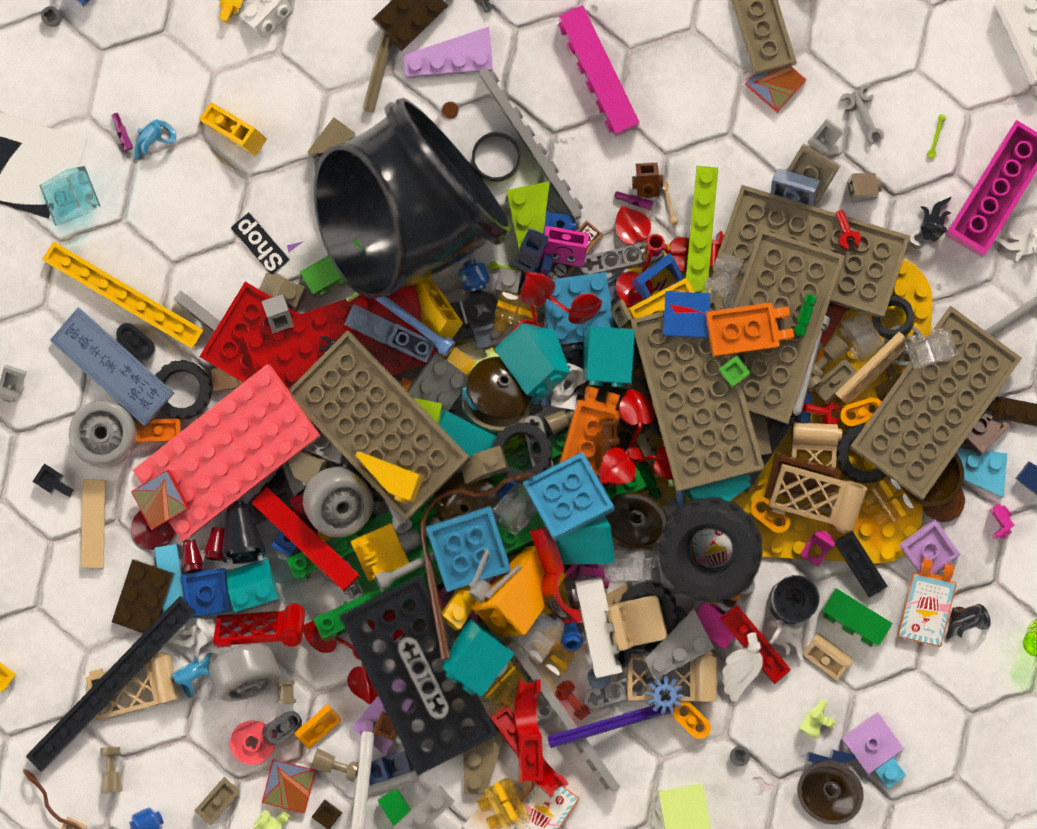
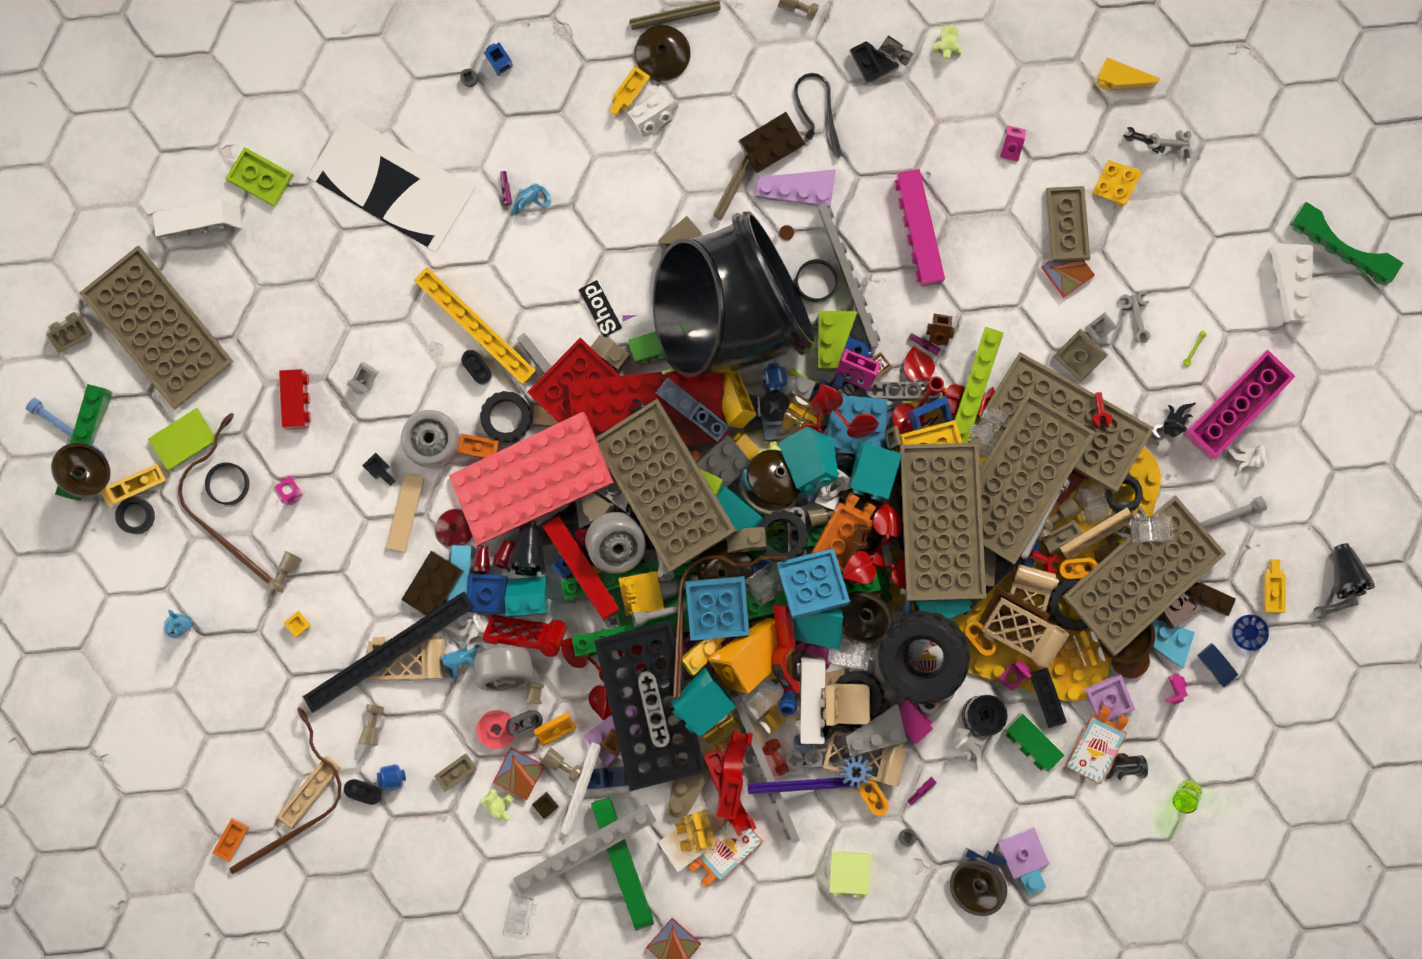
camera: 15 degrees right, 0 degrees up
(69, 195) = (449, 231): clear light blue slope -> none
(112, 366) = (451, 384): sand blue tile -> none
(160, 499) = (466, 506): tile -> none
(233, 129) = (600, 207): yellow slope -> none
(277, 313) = (601, 371): light grey brick -> none
(394, 479) = (669, 535): yellow slope -> none
(443, 344) = (735, 429): medium blue piece -> none
(481, 589) = (720, 645): light grey plant -> none
(531, 250) = (828, 366): dark blue slope -> none
(673, 221) = (954, 369): tan hinge -> none
(686, 314) = (949, 451): blue tile -> none
(734, 371) = (979, 509): bright green plate -> none
(740, 627) = (943, 745): red tile -> none
(742, 668) = (927, 763): white animal -> none
(743, 701) = (922, 790): none -> magenta pin
(746, 329) = (997, 475): orange tile -> none
(795, 187) = (1065, 364): sand blue slope -> none
(805, 315) = (1050, 475): green axle -> none
(815, 719) = (979, 821): yellowish green piece -> none
(827, 657) = (1001, 770): tan slope -> none
(863, 186) = (1123, 377): dark tan slope -> none

